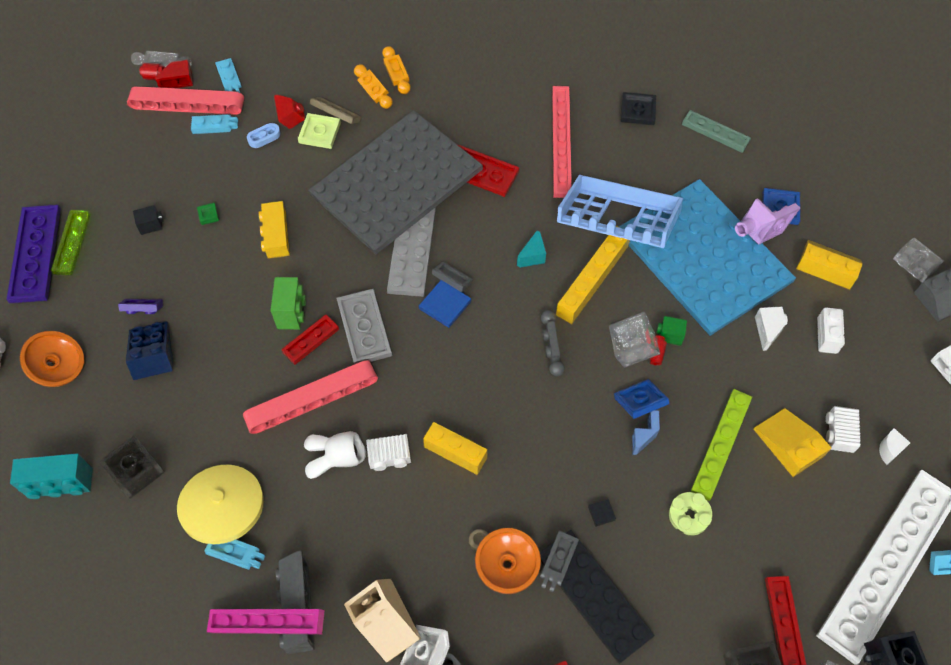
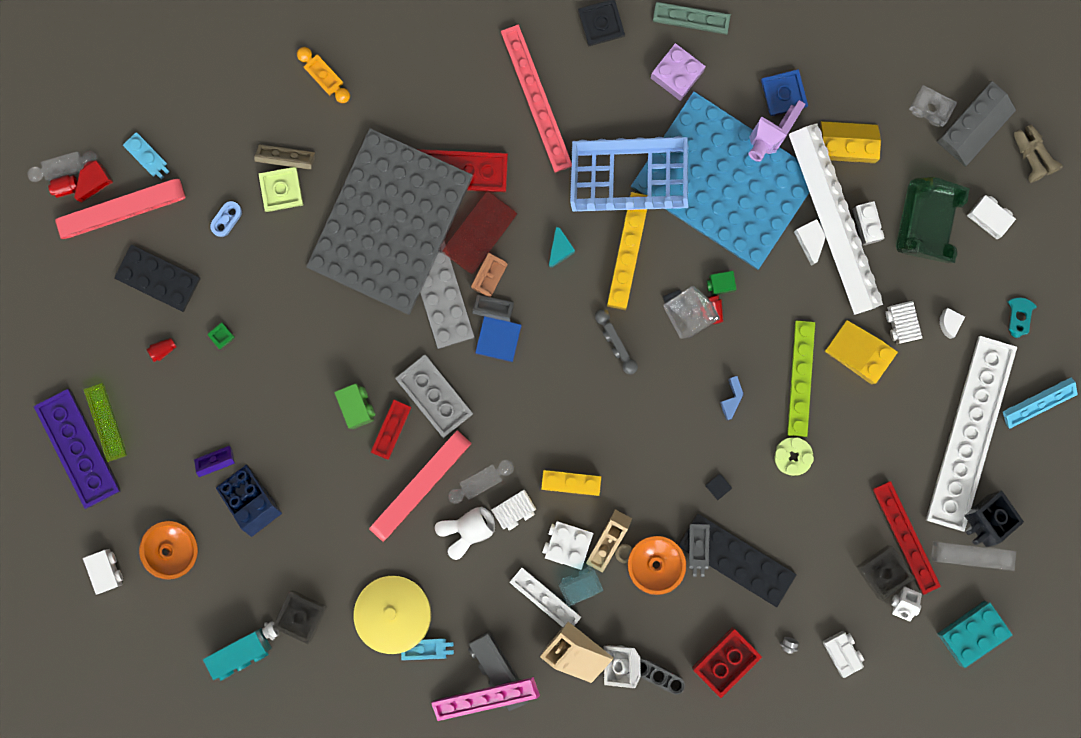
camera: 15 degrees left, 25 degrees up
(97, 472) = (270, 632): none -> white plate
(148, 219) = (166, 367): black brick -> none
(161, 205) = (161, 349): none -> red cone
(184, 157) = (157, 278): none -> black plate
(213, 124) = (164, 224): medium azure hinge -> none
(274, 229) = (296, 327): yellow brick -> none
(289, 111) = (237, 179): red slope -> none
(369, 415) = (480, 482): none -> clear plate
(373, 86) = (308, 107): light orange plate -> none
(377, 549) = (544, 598): none -> white plate
(420, 553) = (580, 587): none -> clear light blue brick
(425, 507) = (567, 545): none -> white plate
(460, 249) = (489, 275): none -> nougat hinge
(467, 215) = (479, 232): none -> clear red plate
(468, 519) = (609, 540): none -> tan slope
(641, 398) = (717, 367): blue tile -> none
(691, 159) = (677, 72): none -> lavender brick
(801, 315) = (835, 218): none -> white brick
(894, 347) = (930, 218): none -> clear green windscreen

